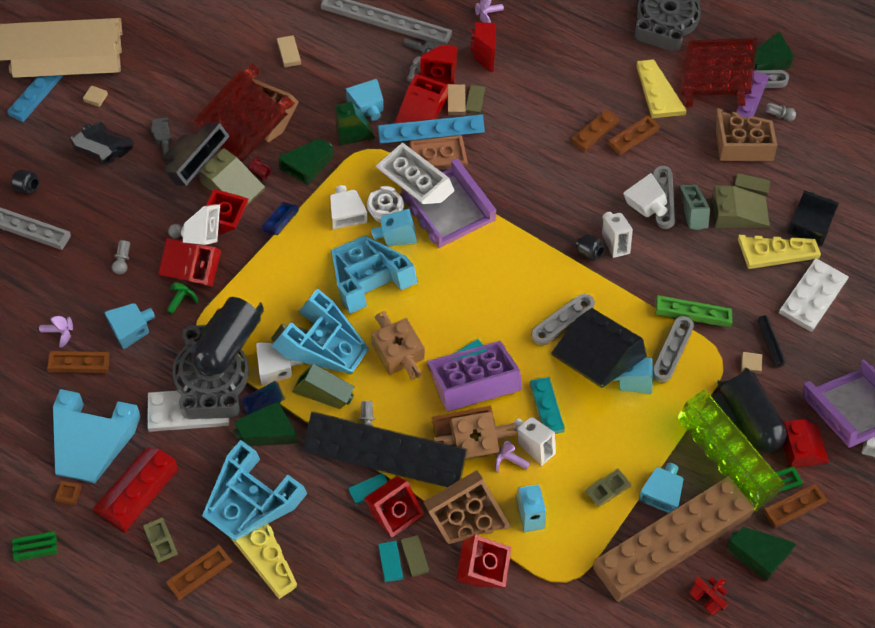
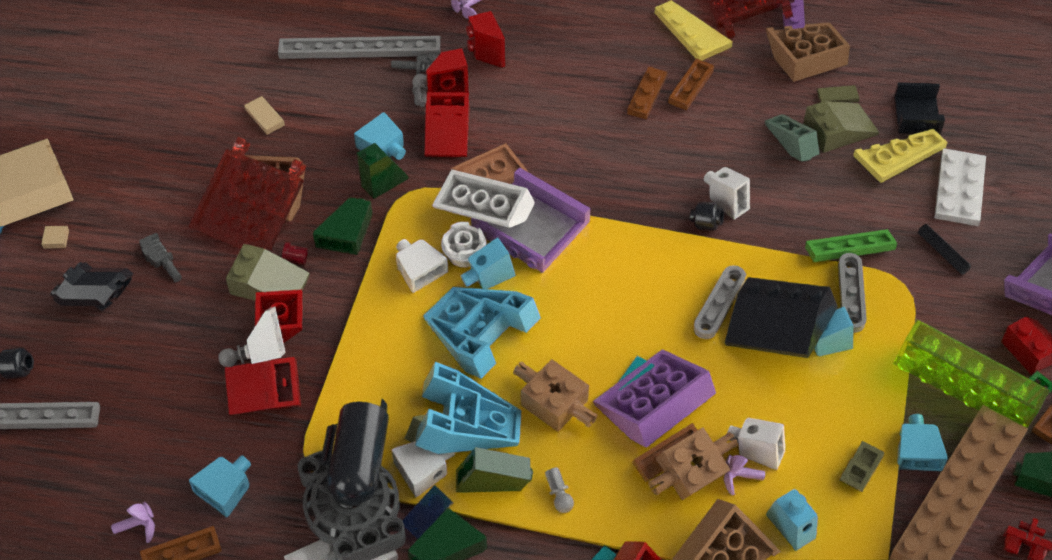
camera: 20 degrees left, 5 degrees down
(120, 266) = (177, 421): light grey axle -> none
(182, 291) = (270, 422): green plant -> none
(193, 152) = (208, 262): black brick -> none
(280, 218) = (345, 301): clear blue plate -> none
(384, 450) = (598, 517): black plate -> none
(430, 129) = (469, 147): dark azure plate -> none
(456, 100) = (481, 109): tan tile -> none
(475, 99) = (500, 101): olive piece -> none
(547, 404) = (747, 398): teal plate -> none
(647, 197) = (741, 142): white torso -> none
(666, 184) = (757, 137): light grey plate -> none
(752, 361) = (936, 279): tan tile -> none
(752, 410) = (970, 324): black piece -> none
(781, 111) = (829, 12): light grey axle -> none

